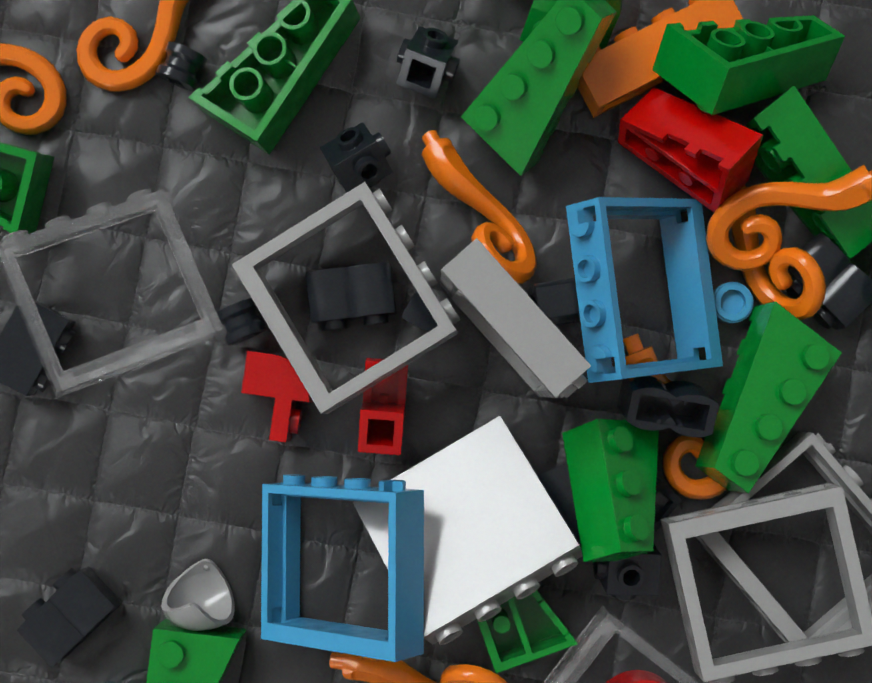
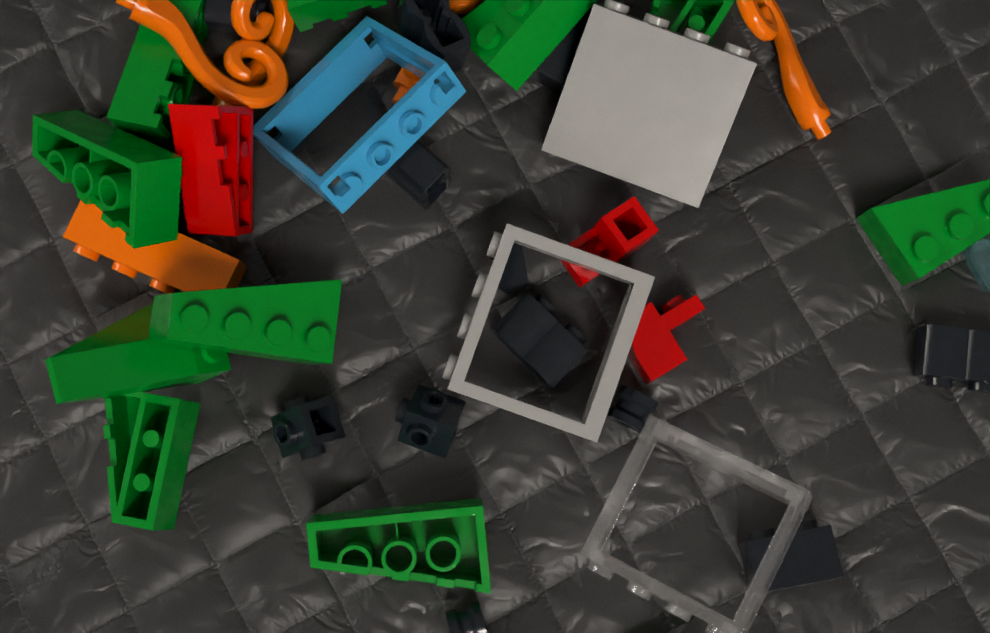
camera: 130 degrees left, 5 degrees down
(199, 598) = (866, 267): light grey helmet -> none
(281, 569) = (812, 142): dark azure window -> none
(504, 231) = (394, 256): orange plant -> none
(513, 323) = (467, 180): light grey window -> none
(732, 302) = (309, 49): dark azure tile -> none

